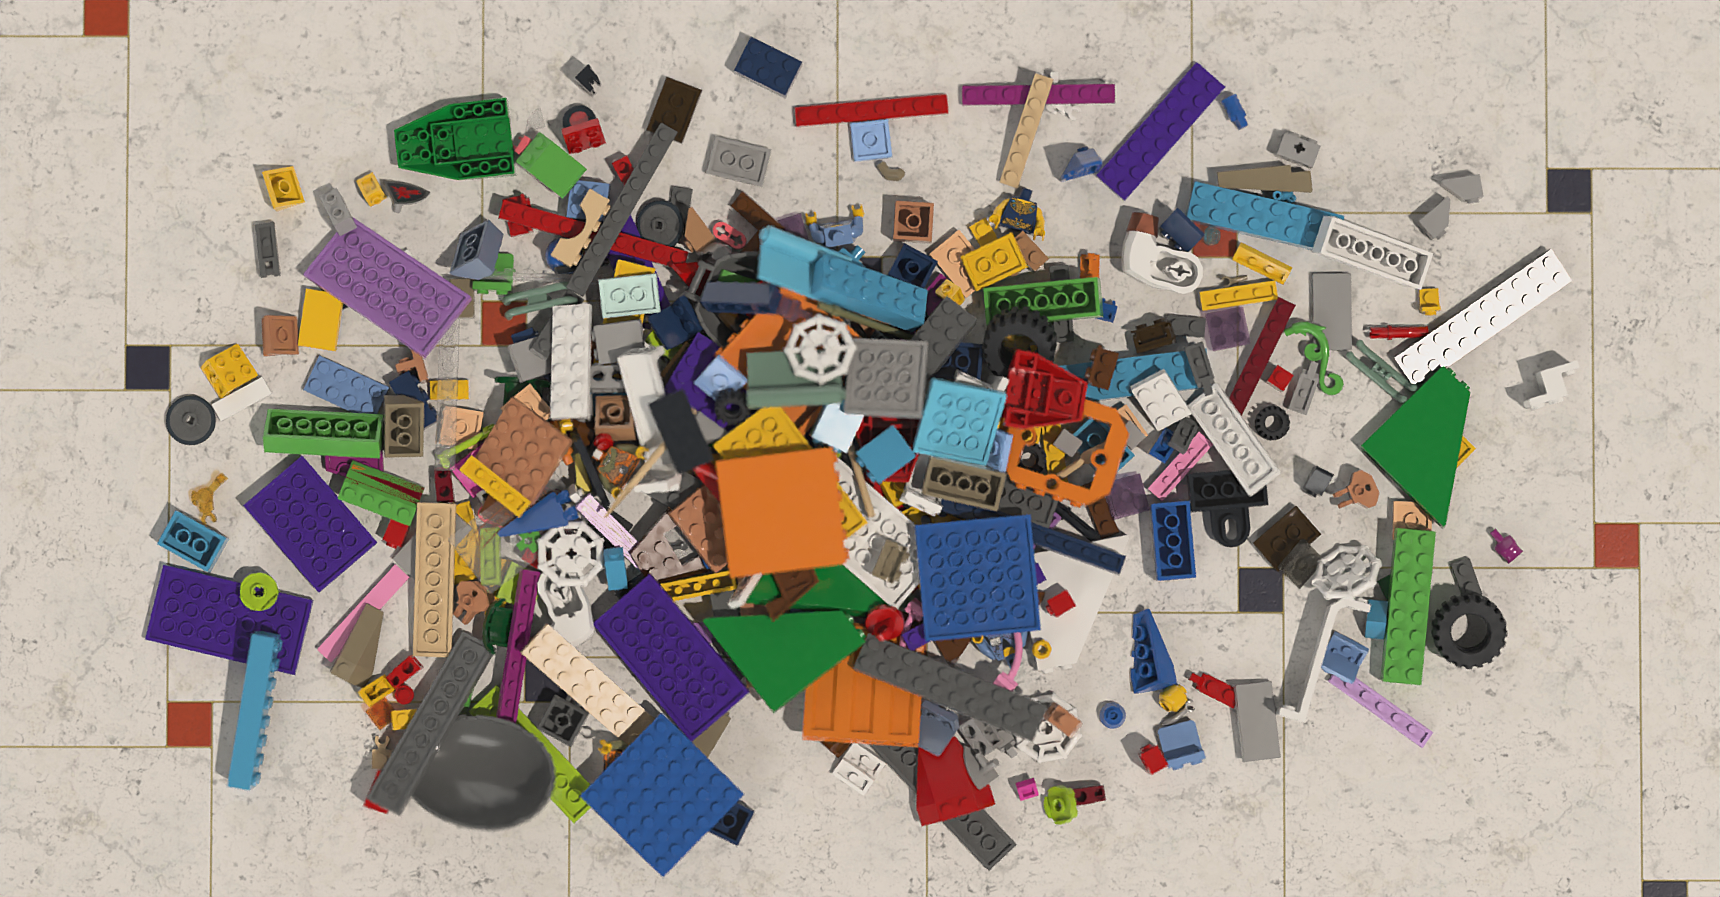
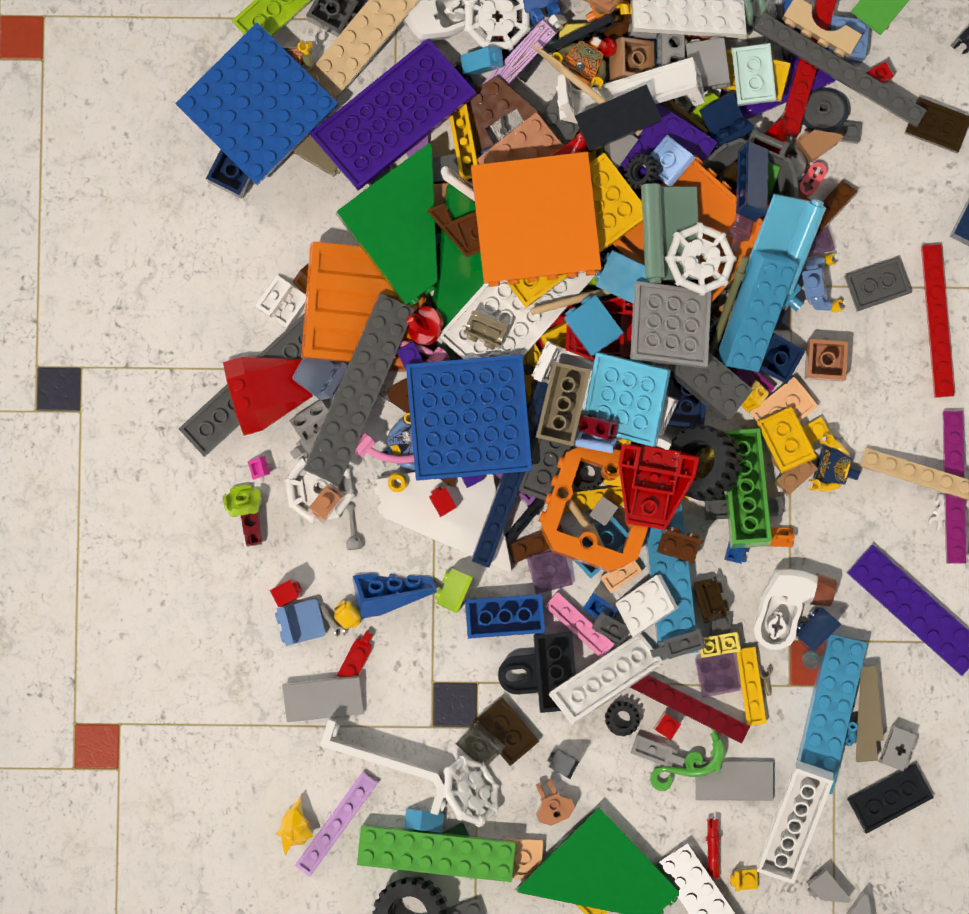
camera: 90 degrees right, 0 degrees up
(581, 129) = (918, 32): red plate -> none
(738, 161) = (886, 188): light grey plate -> none
(835, 170) = (877, 284): none -> dark grey tile
(871, 140) = (907, 320): light blue tile -> none
(891, 174) = (873, 339): dark tan arm -> none
(979, 767) = (280, 419): light grey shield -> none
(986, 448) = (599, 426): none -> dark red leg
(1082, 163) = (883, 529): blue wedge -> none
(1100, 693) = (353, 541): none -> light grey hinge
(1106, 716) = (332, 560): blue cone -> none
(1136, 435) = (611, 579): light grey panel -> none
(1148, 591) = (454, 590): none -> lime slope
(1198, 325) = (721, 644): none -> light yellow slope
(1235, 111) = (937, 685): blue hinge -> none
(1262, 263) = (783, 710): yellow plate -> none
(1343, 657) = (385, 786): medium blue bracket -> none
(1347, 157) = (890, 798): none -> black tile
(1380, 372) = (673, 829): sand green piece -> none
(1385, 748) = (294, 827): none -> yellow hair

